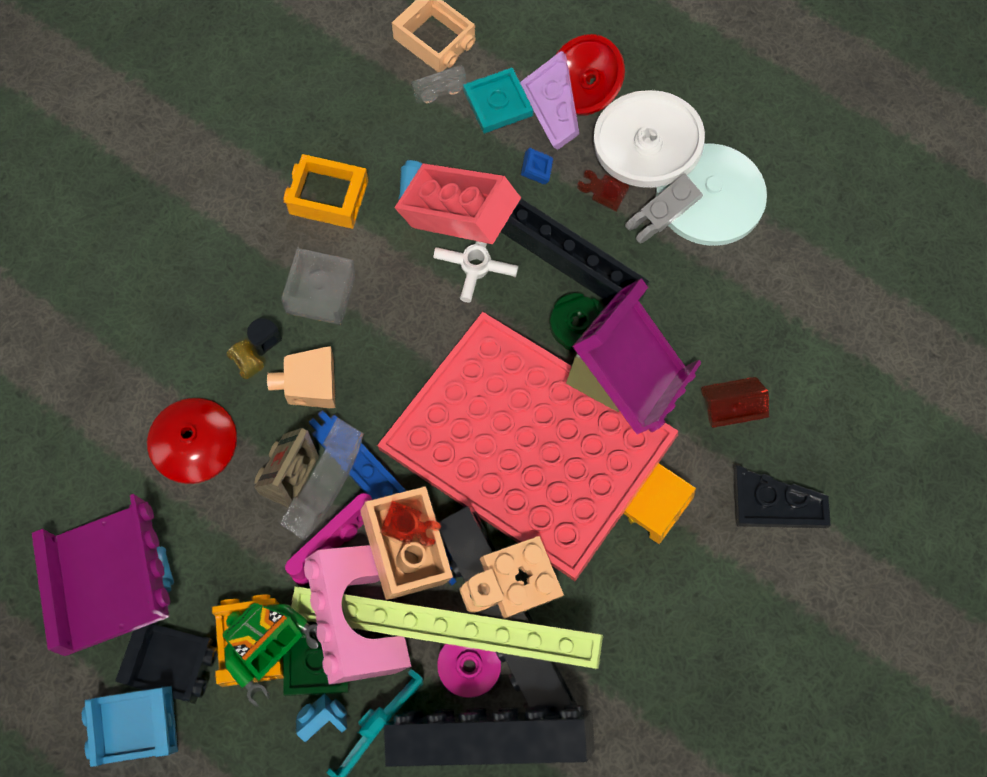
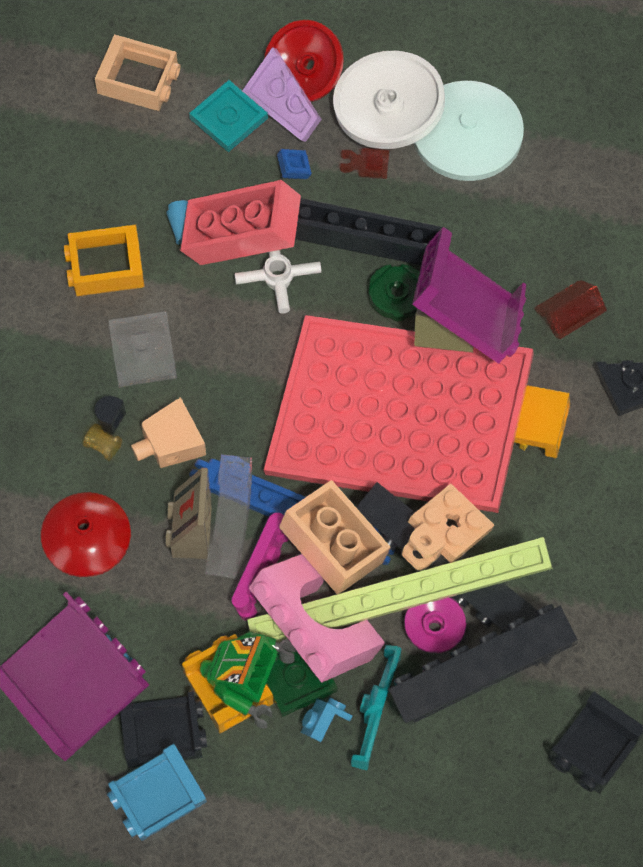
camera: 20 degrees left, 5 degrees down
(404, 524) = (329, 517): clear red plate -> none
(439, 84) = (165, 121): clear plate -> none
(665, 207) = (432, 157): light grey hinge -> none

